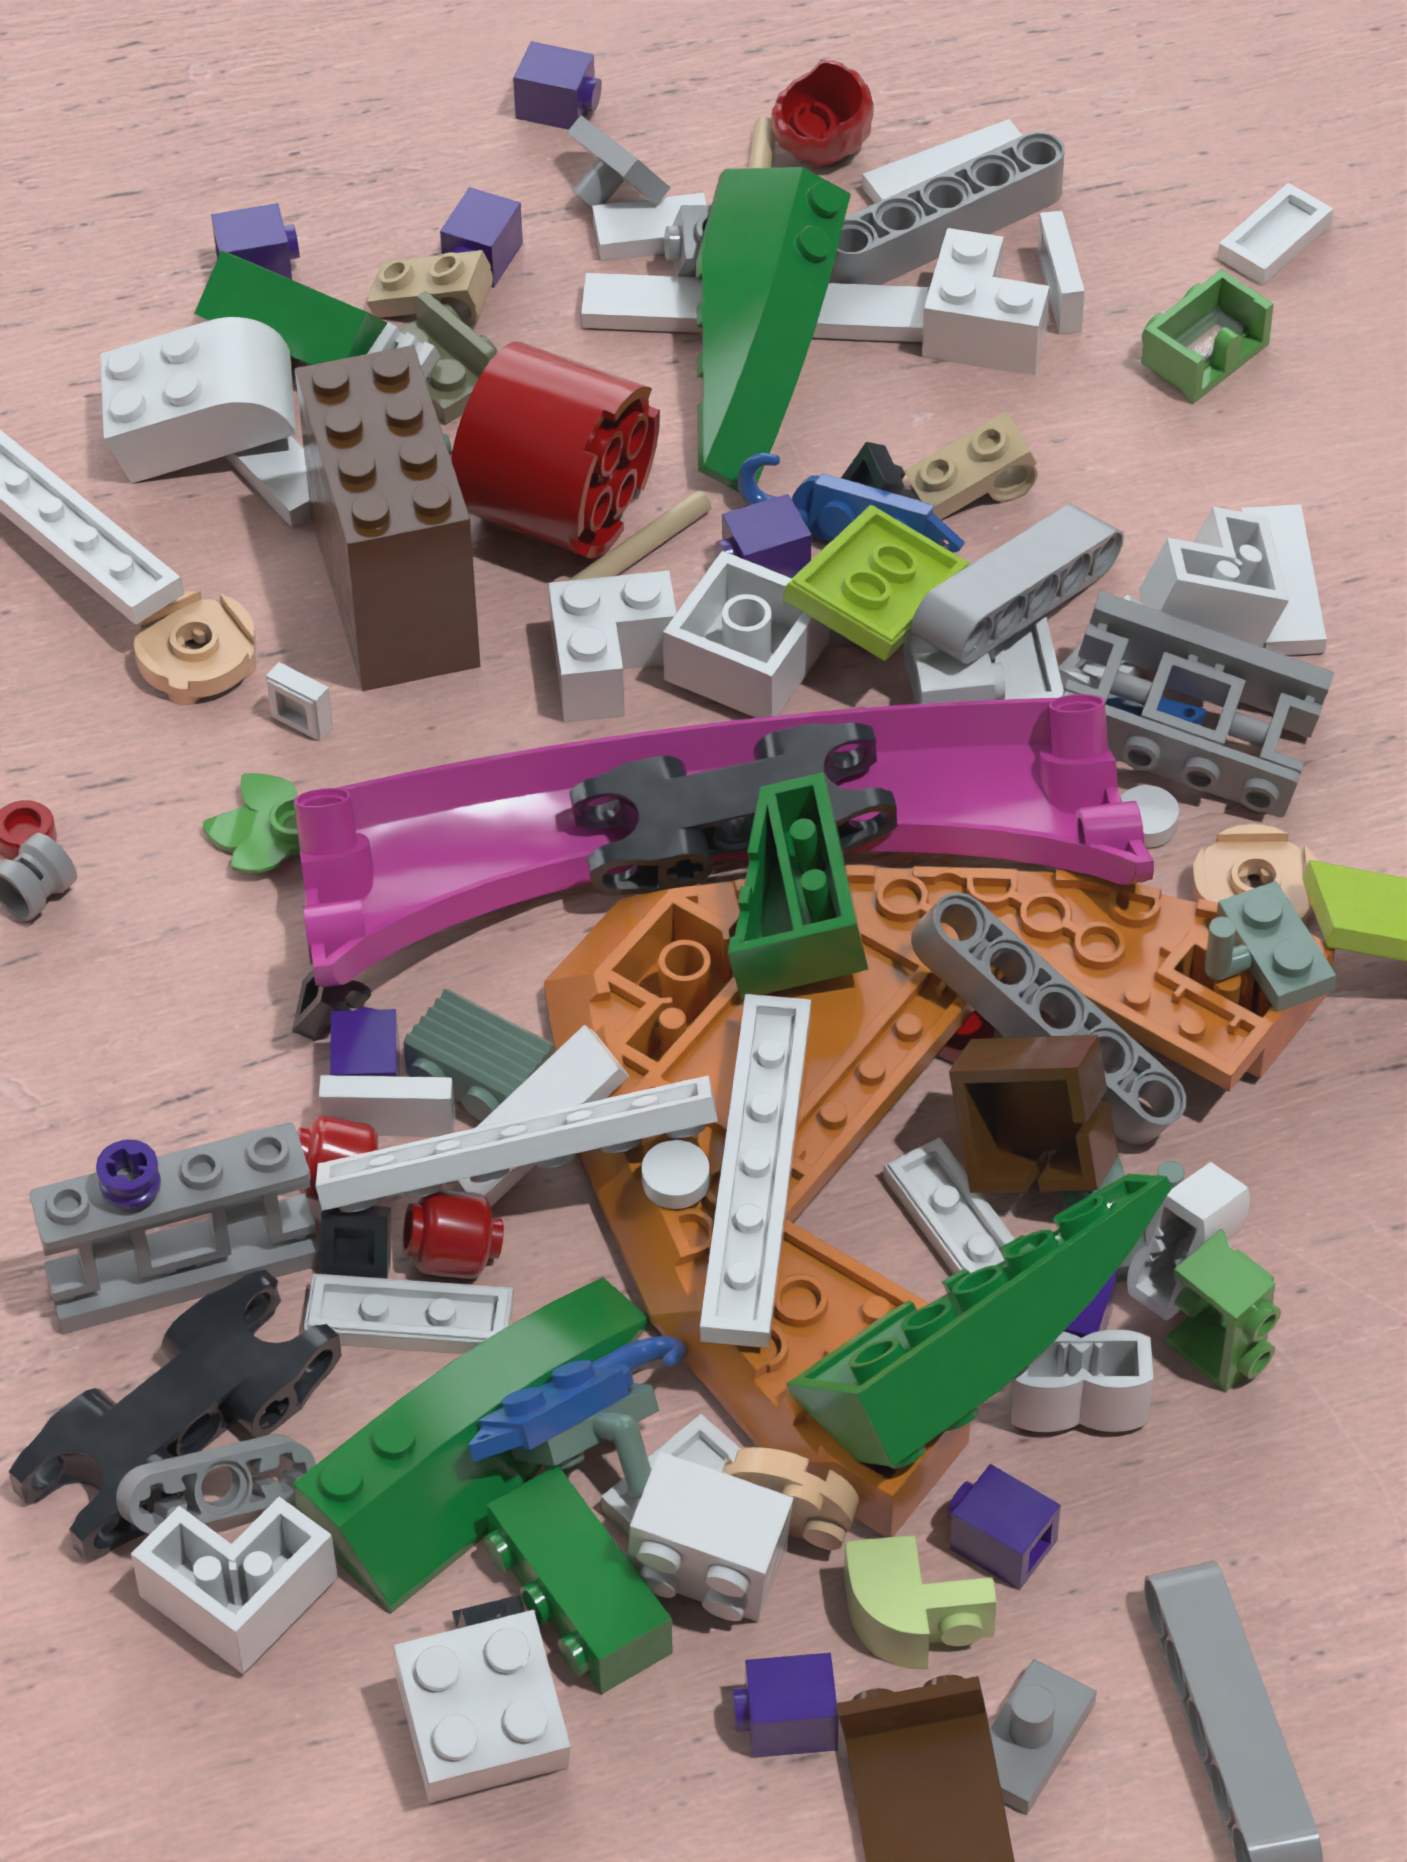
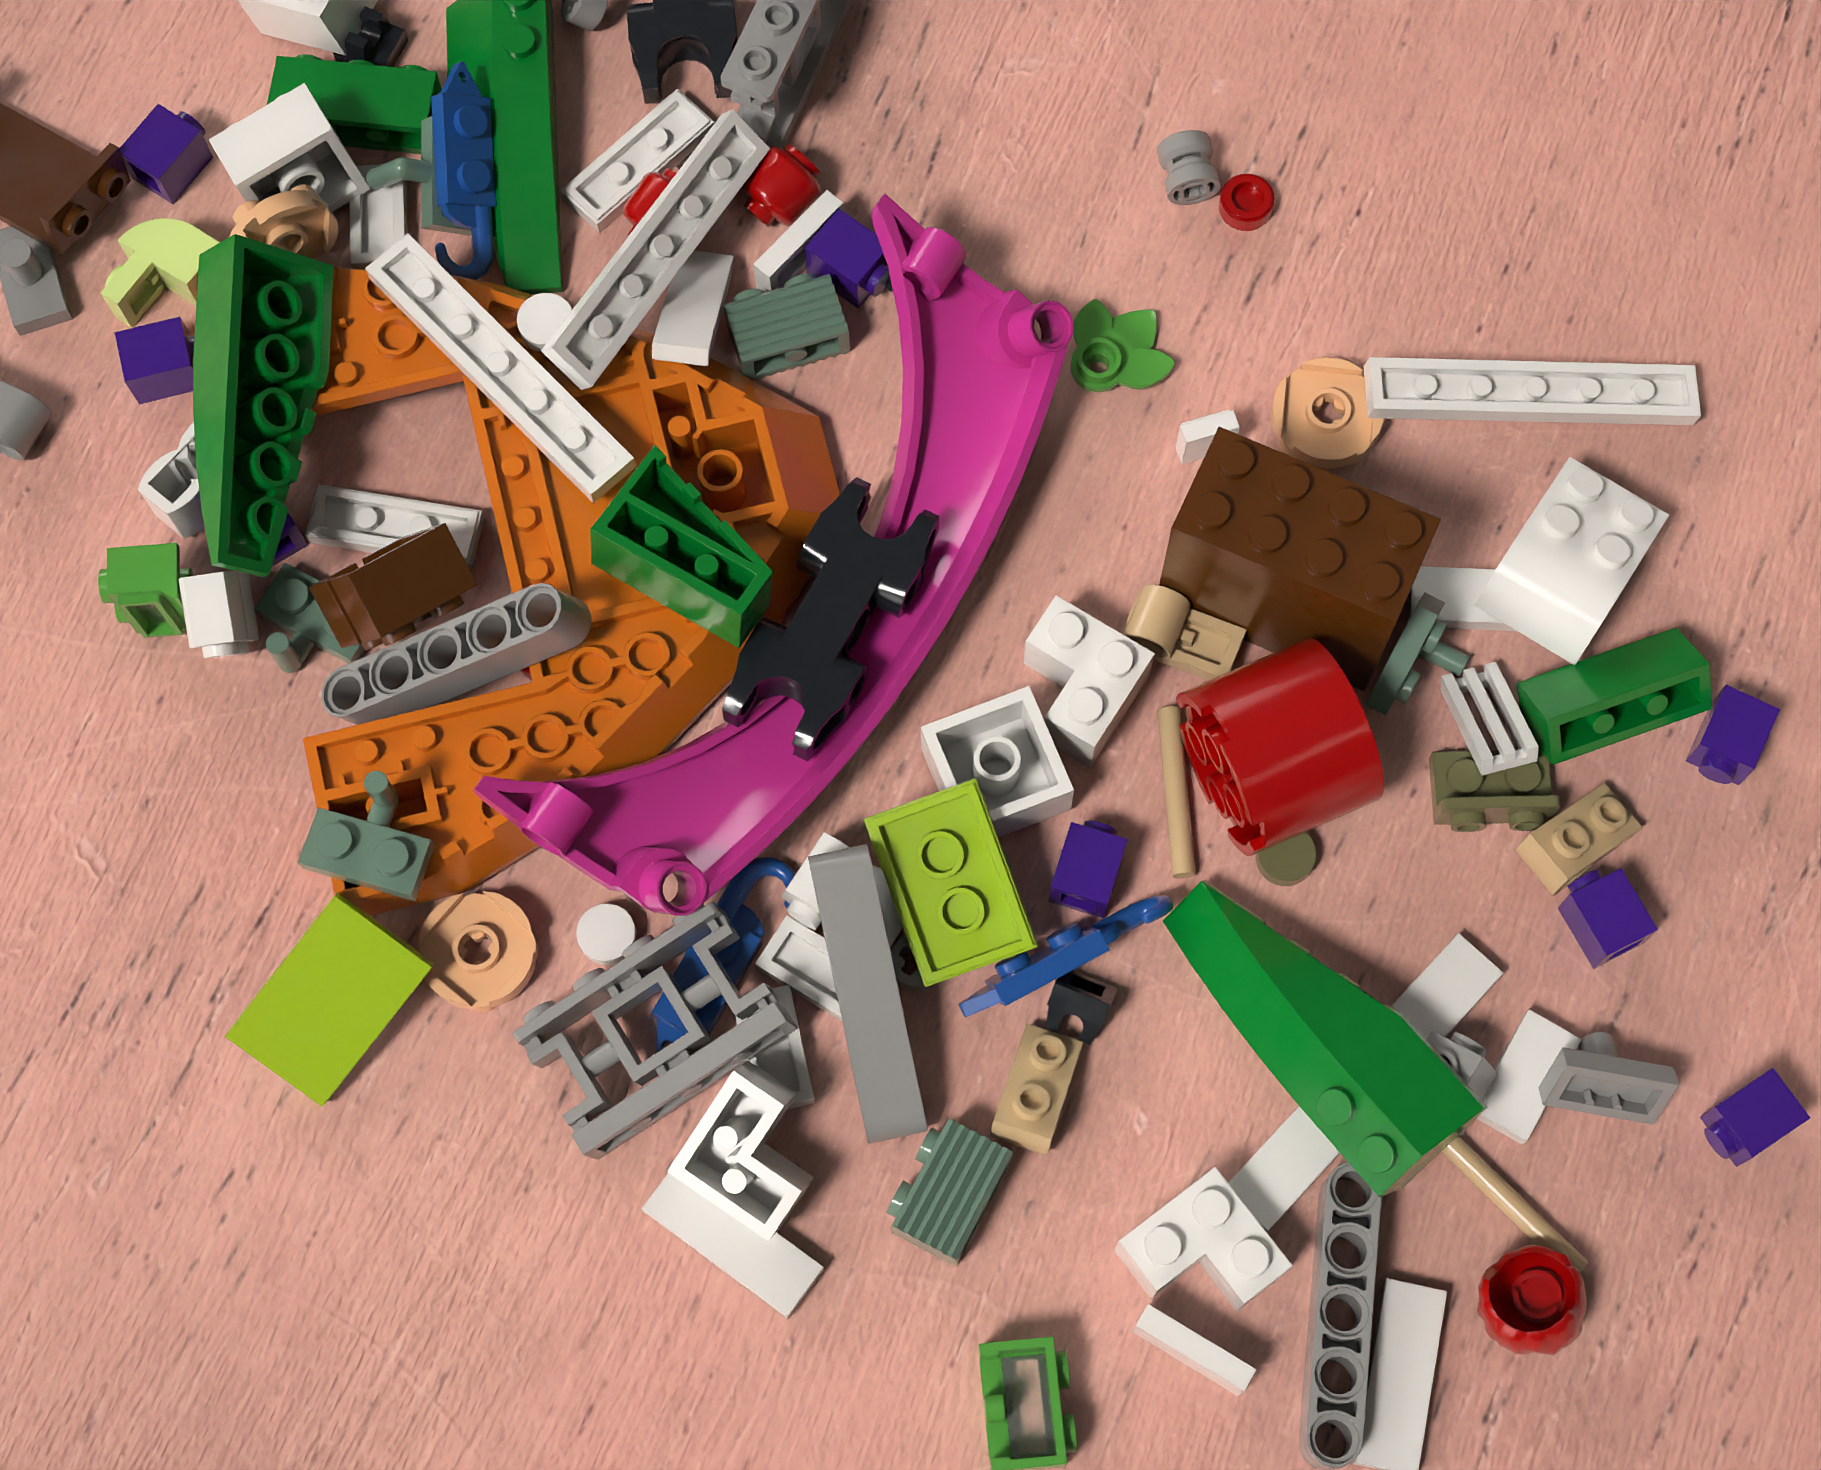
camera: 130 degrees right, 20 degrees up
(508, 615) = (1181, 635): none -> tan plate
(1105, 466) = (950, 1191): none -> sand green brick

